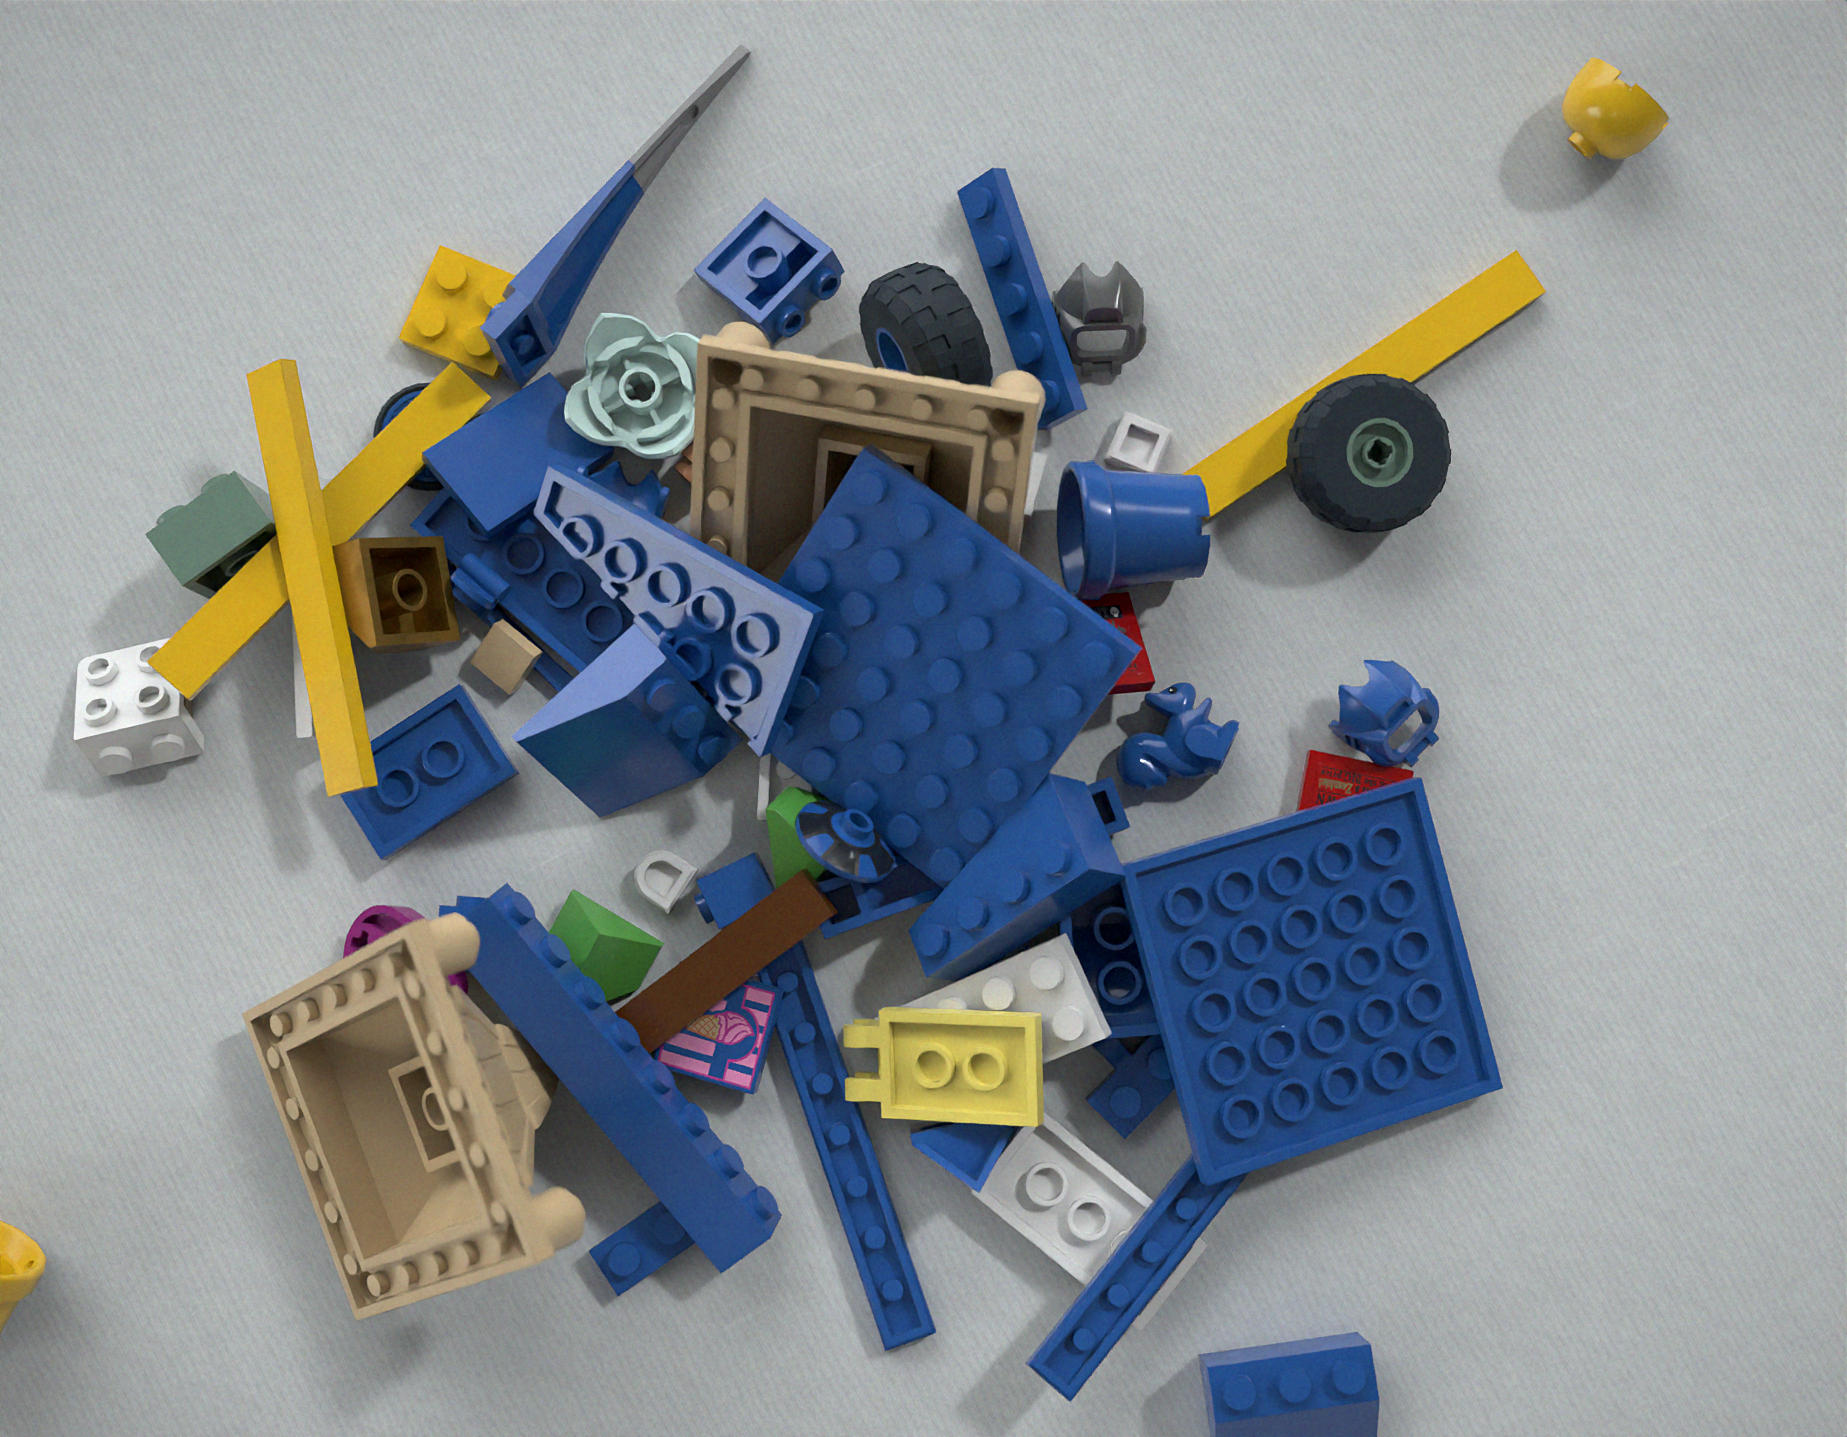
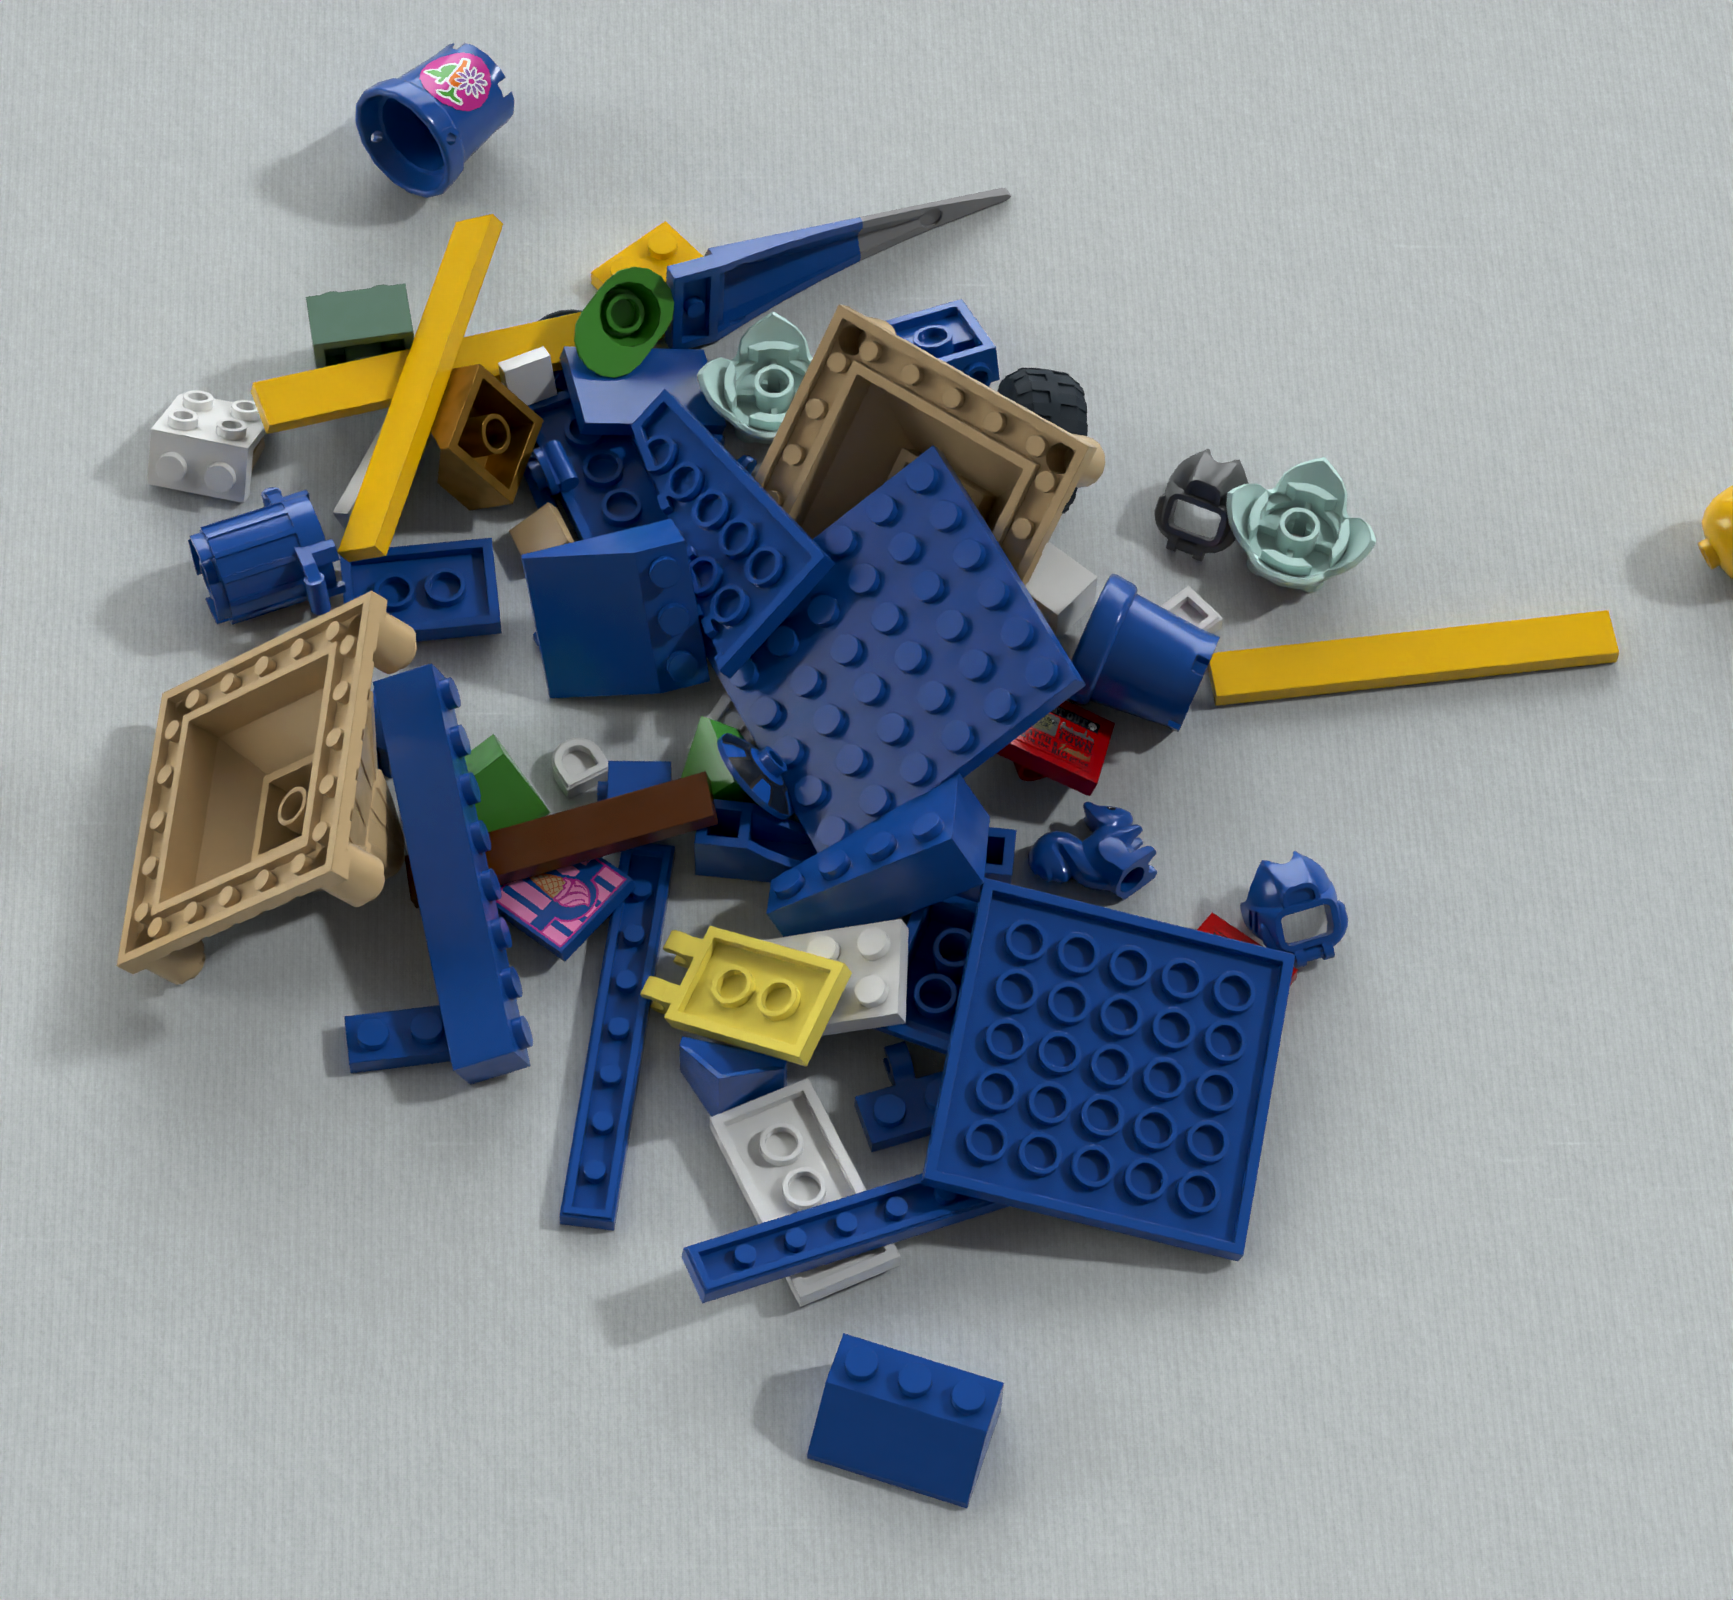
camera: 25 degrees right, 25 degrees down
(158, 245) = (433, 118): none -> blue piece
(262, 823) = (266, 560): none -> blue container
(404, 501) = (529, 376): none -> white tile
(466, 402) = (623, 321): none -> bright green piece
(1021, 294) = (1142, 464): blue plate -> none
(1204, 271) = (1307, 503): none -> light aqua brick
(1368, 453) = (1362, 713): black wheel -> none

